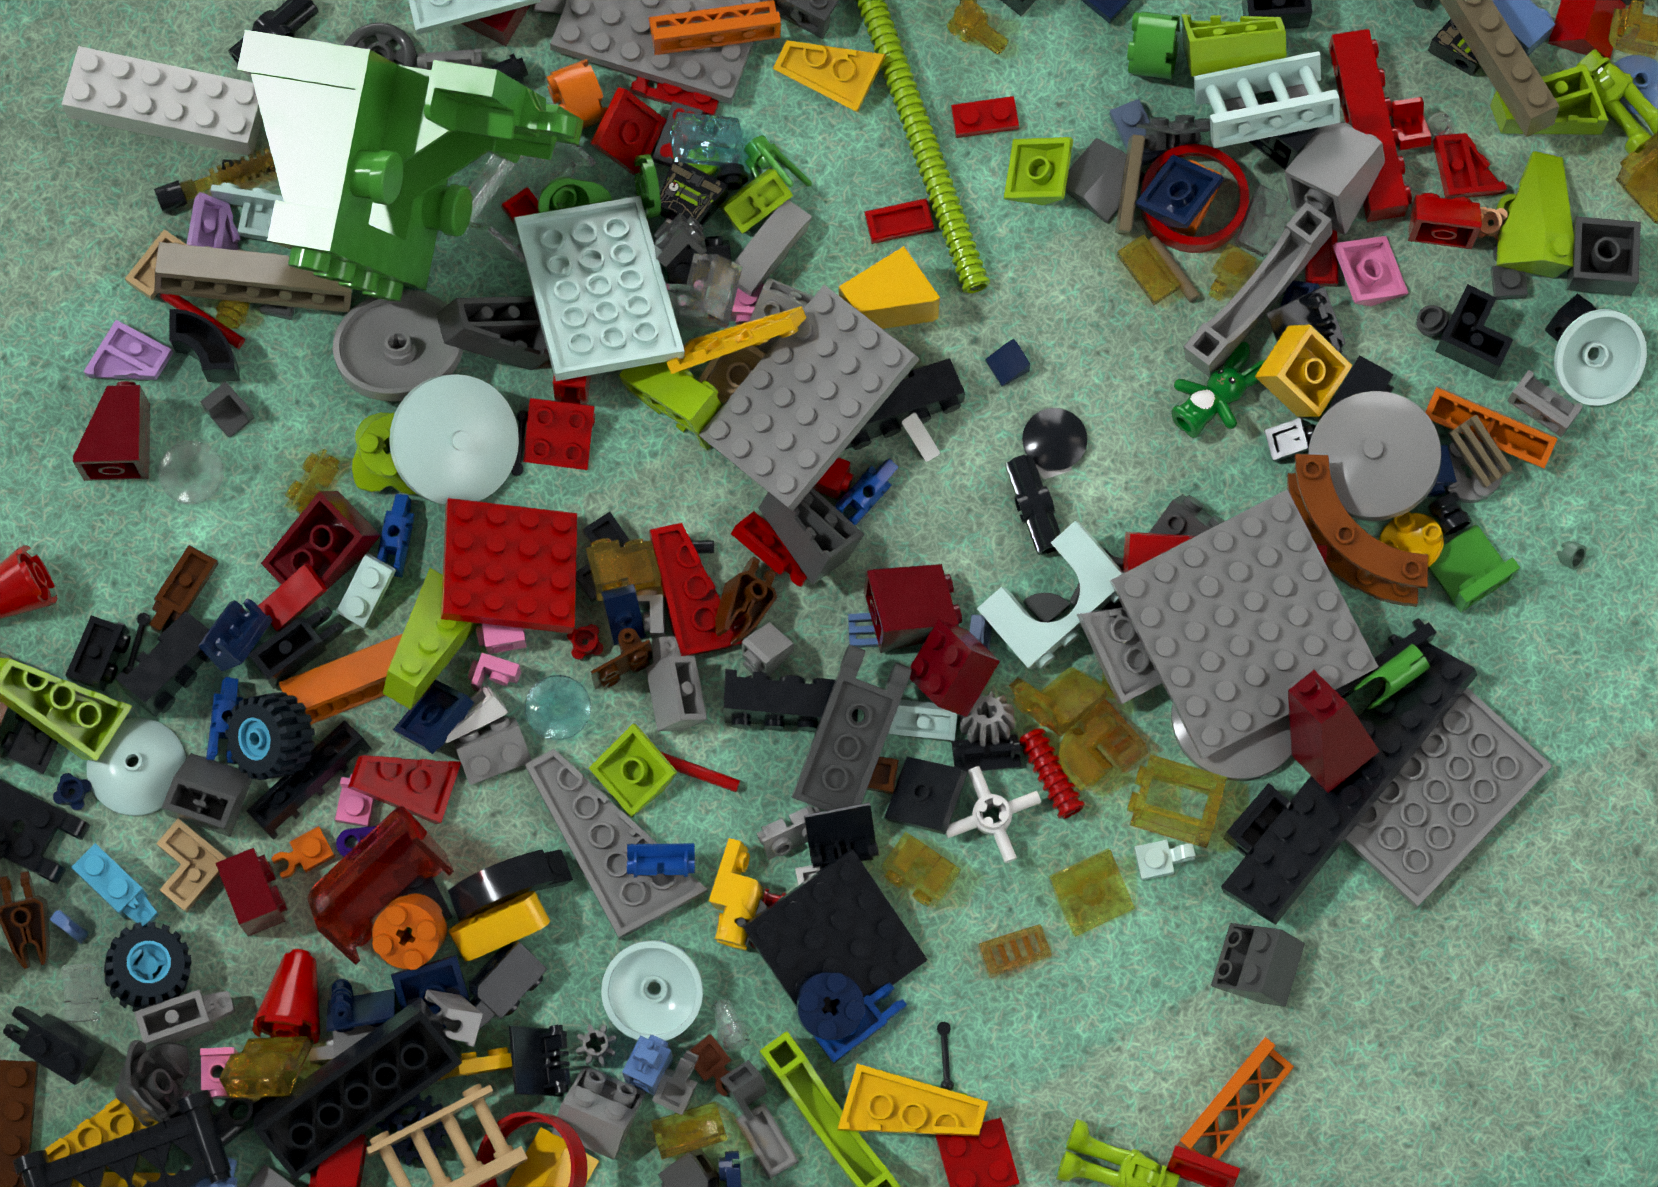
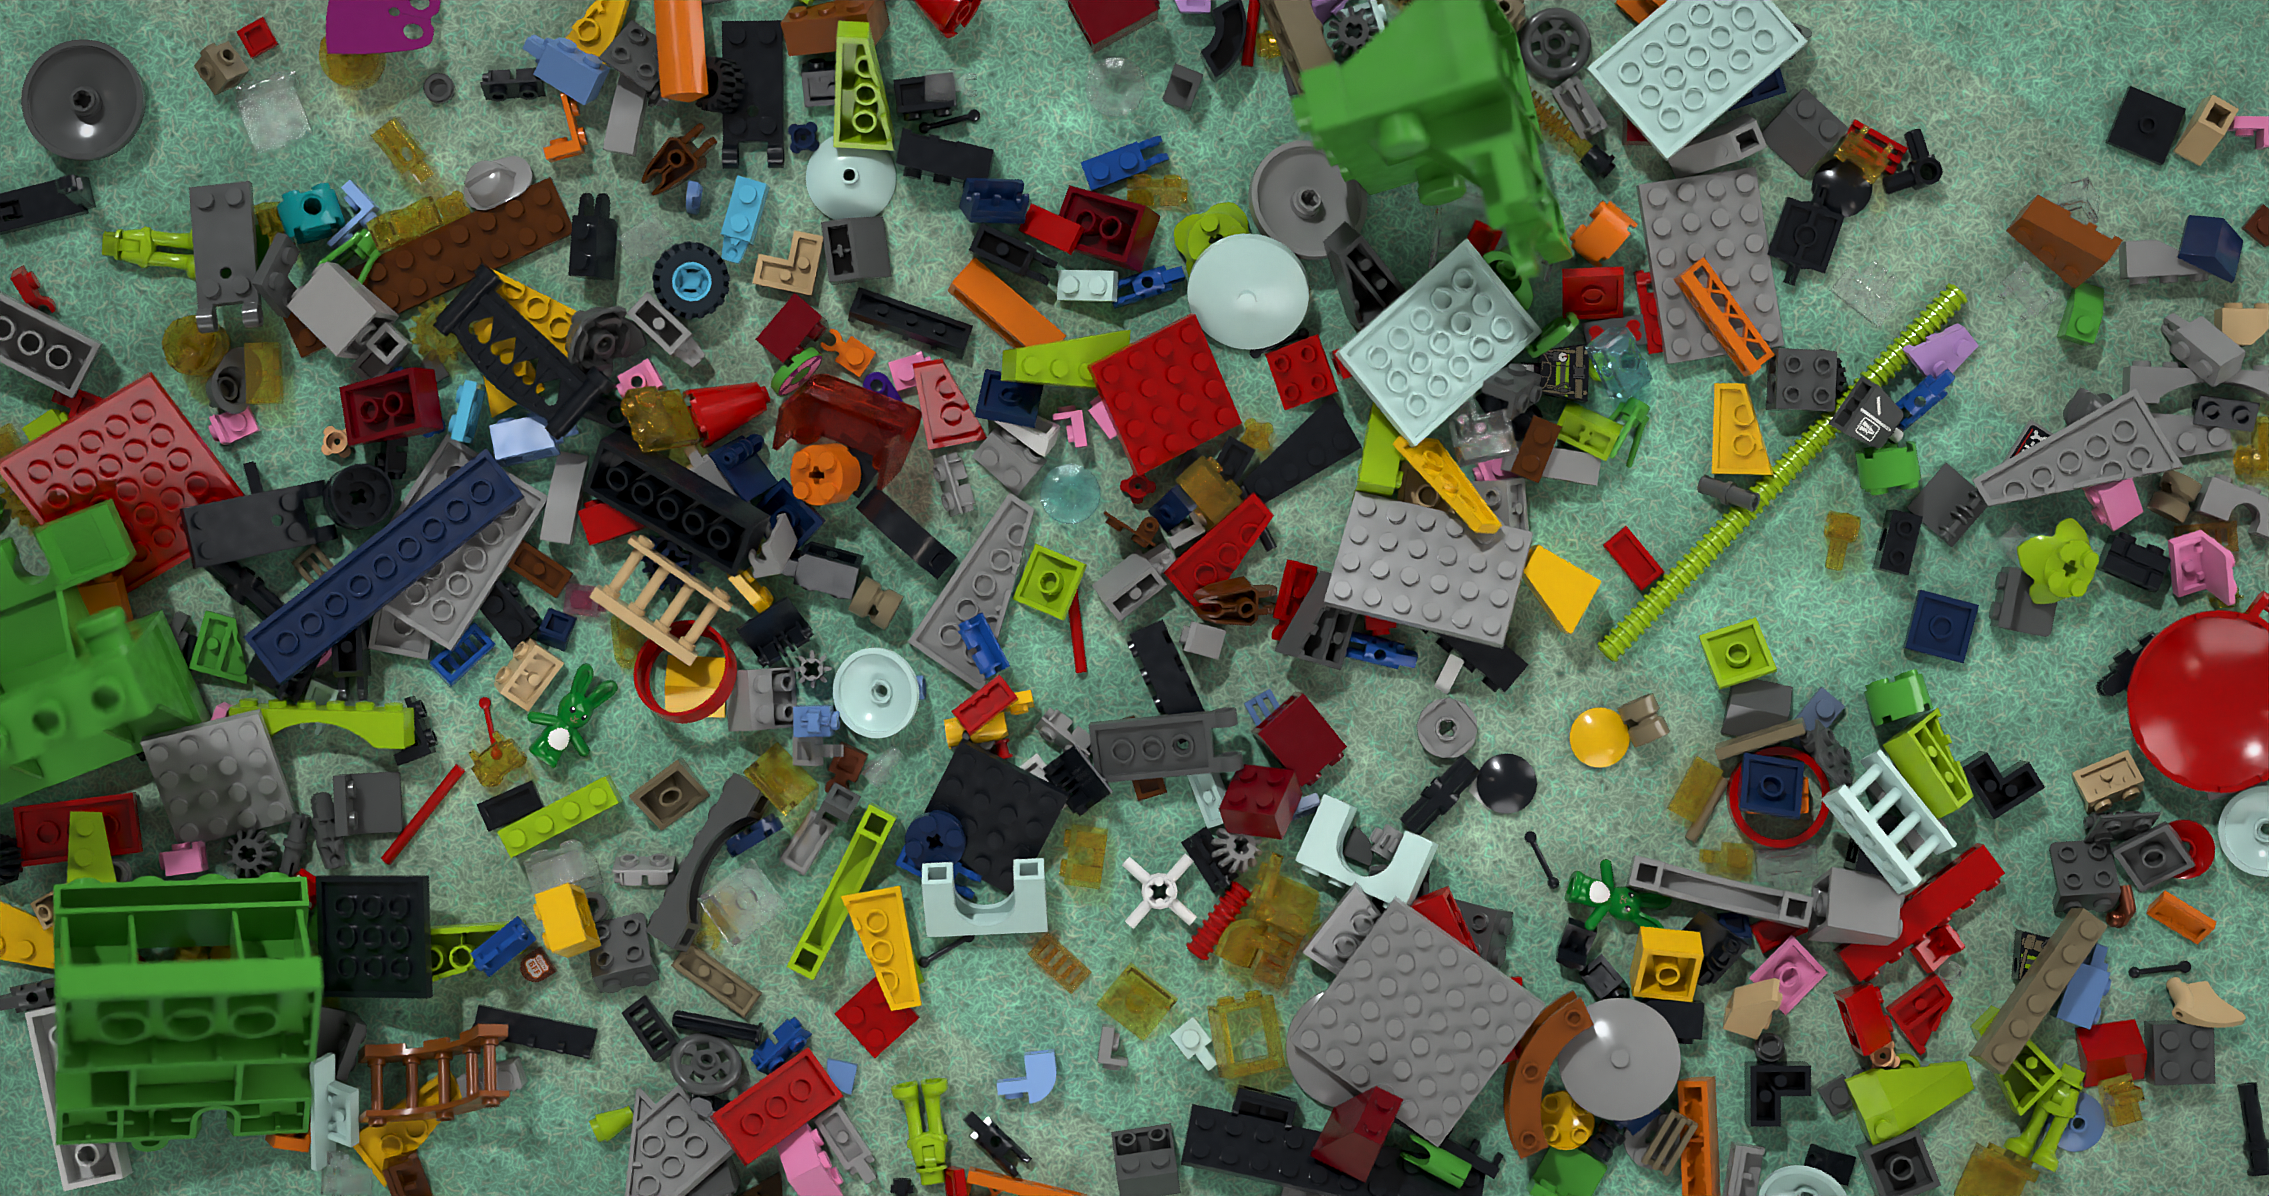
camera: 65 degrees right, 15 degrees up
(99, 626) = (943, 84): none -> clear plate
(181, 587) = (1014, 133): reddish brown hinge -> none
(222, 706) = (938, 227): blue hinge -> none
(252, 224) = (1354, 22): none -> dark grey gear
(267, 504) = (1121, 163): none -> blue hinge
(270, 735) = (924, 276): black wheel -> none
(295, 910) = (792, 377): none -> tile
(472, 816) = (955, 498): none -> light grey hinge
(499, 926) = (866, 543): yellow beam -> none
(551, 948) = (875, 603): none -> dark tan wheel
(595, 495) = (1257, 442): none -> clear yellow plate
(637, 466) = (1307, 451): none -> black wing
(720, 886) = (984, 705): none -> red plate
(733, 175) = (1600, 399): black plate -> none
(747, 250) = (1536, 449): none -> reddish brown plate
(882, 103) = (1728, 493): none -> dark grey pin
(925, 795) = (1148, 829): black plate -> none
(944, 959) = (954, 916): none -> light aqua arch
(963, 483) = (1445, 745): none -> light grey plate
(985, 117) = (1763, 583): red plate -> none
(1008, 363) = (1553, 712): dark blue slope -> none
(1054, 333) = (1599, 737): none -> yellow dish
(1054, 575) = (1385, 841): none -> light grey gear
(1058, 282) = (1643, 720): none -> dark tan wheel
(1119, 443) = (1530, 837): none -> black hinge
(1119, 942) = (1109, 1042): none -> light grey bracket
(1119, 1024) = (1039, 1077): none -> light blue brick
(1150, 1112) = (984, 1131): none -> black hinge
(1242, 448) = (1575, 944): none -> black bracket
(1384, 314) = (1752, 1007): none -> tan slope

